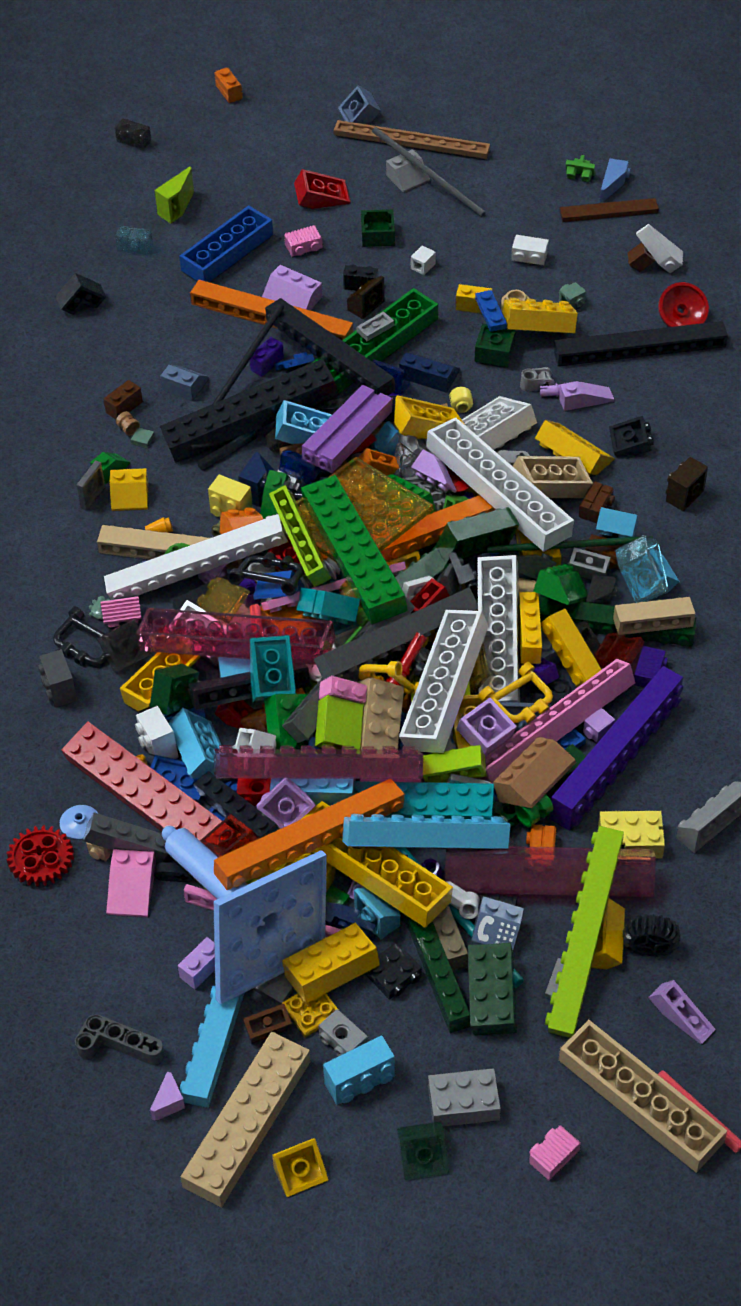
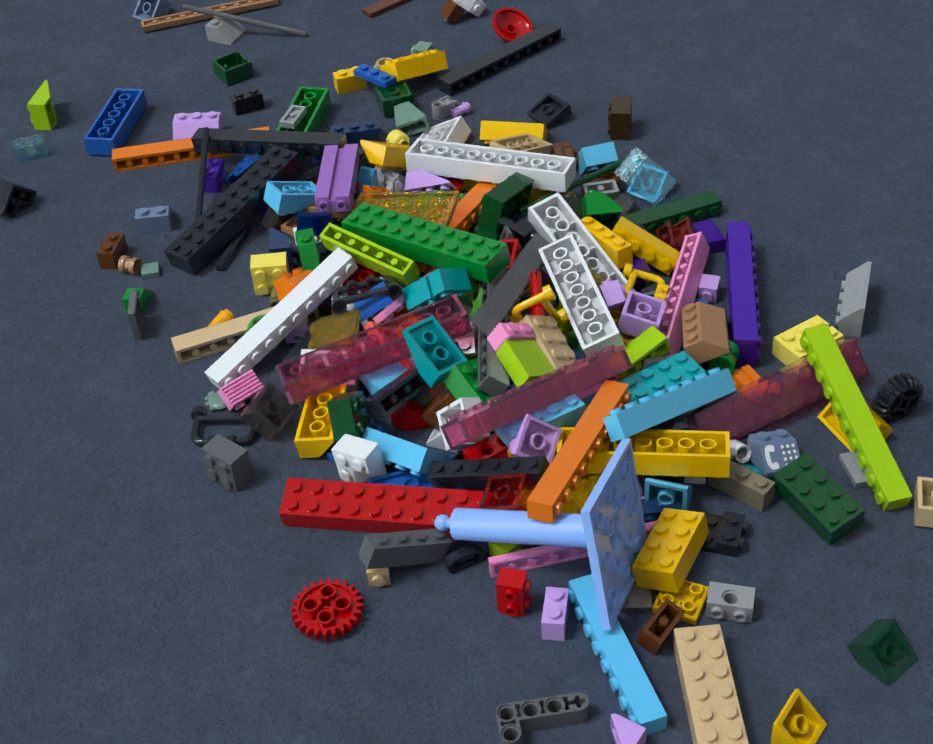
camera: 30 degrees left, 10 degrees down
(71, 826) = (346, 569): light blue dish -> none
(129, 489) = (170, 306): yellow slope -> none
(130, 883) = (432, 586): bright pink slope -> none
(180, 926) = (513, 592): none -> red brick
(228, 85) = (29, 31): orange brick -> none
(303, 241) = (178, 97): bright pink brick -> none
(320, 190) = (162, 64): red slope -> none
(359, 1070) = (775, 617): medium azure brick -> none
(367, 298) = (264, 109): dark brown slope -> none
(423, 260) = (287, 74): white brick -> none
(440, 975) = (762, 512): dark green brick -> none
(464, 1097) = (875, 591): light grey brick -> none
(473, 692) = (612, 293): none -> lavender brick
(488, 379) = (410, 119): none -> sand green slope
(529, 250) = (365, 37): white brick -> none
(580, 395) = (487, 102): lavender slope -> none
(654, 615) = (684, 198): tan brick -> none

